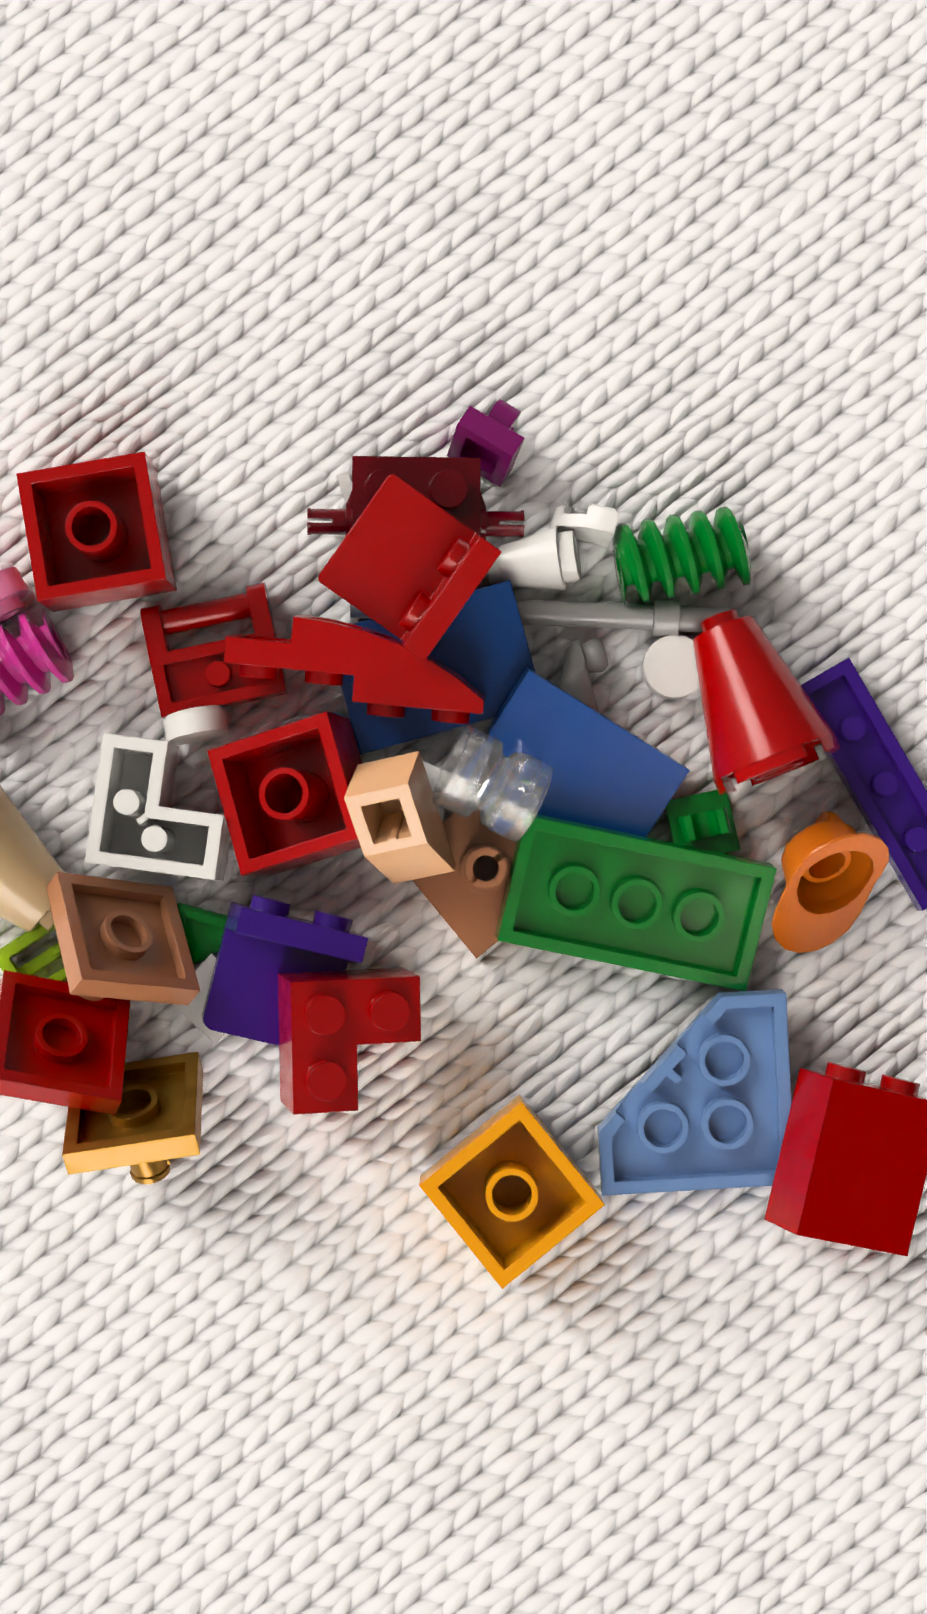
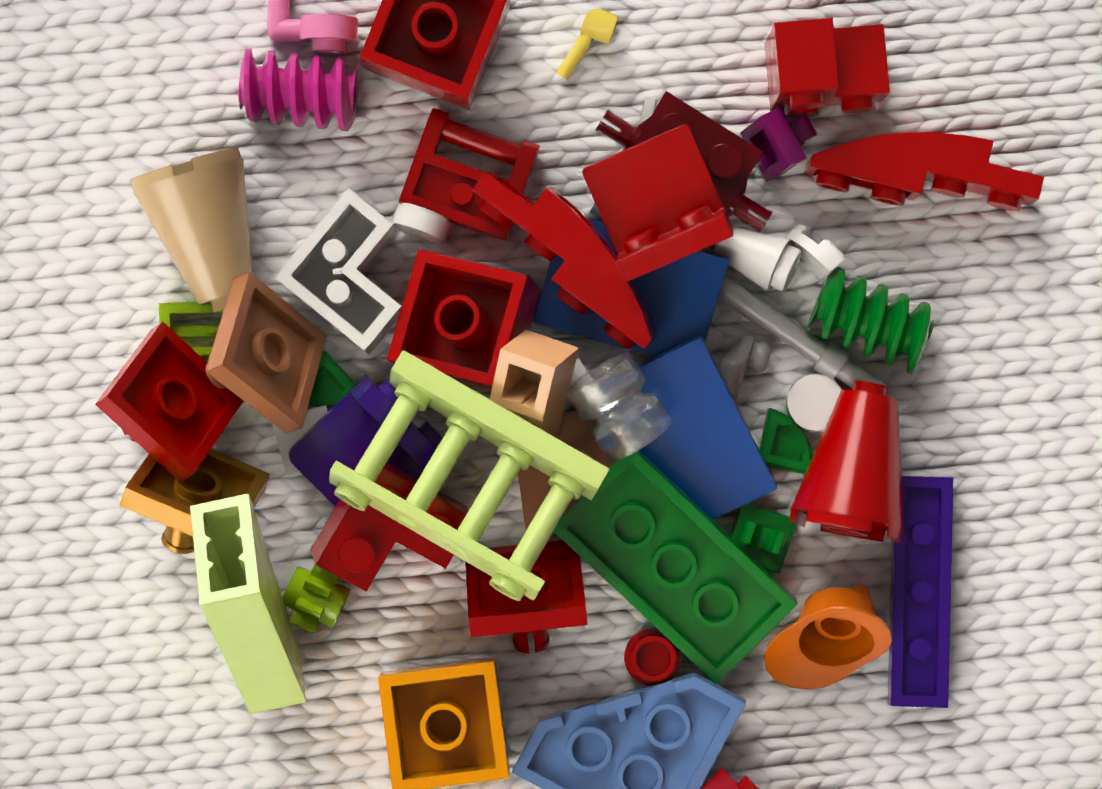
camera: 30 degrees right, 0 degrees up
(247, 1195) = (245, 604): none -> yellowish green slope
(249, 435) = (597, 26): none -> light yellow hand
(313, 1146) = (315, 598): none -> lime gear
(353, 882) = (469, 417): none -> yellowish green fence
(489, 341) = (825, 66): none -> red brick
(509, 1016) = (556, 606): none -> red tile
(617, 390) = (901, 162): none -> red slope
(668, 1003) = (651, 657): none -> red plate
(669, 723) = (784, 443): none -> green tile

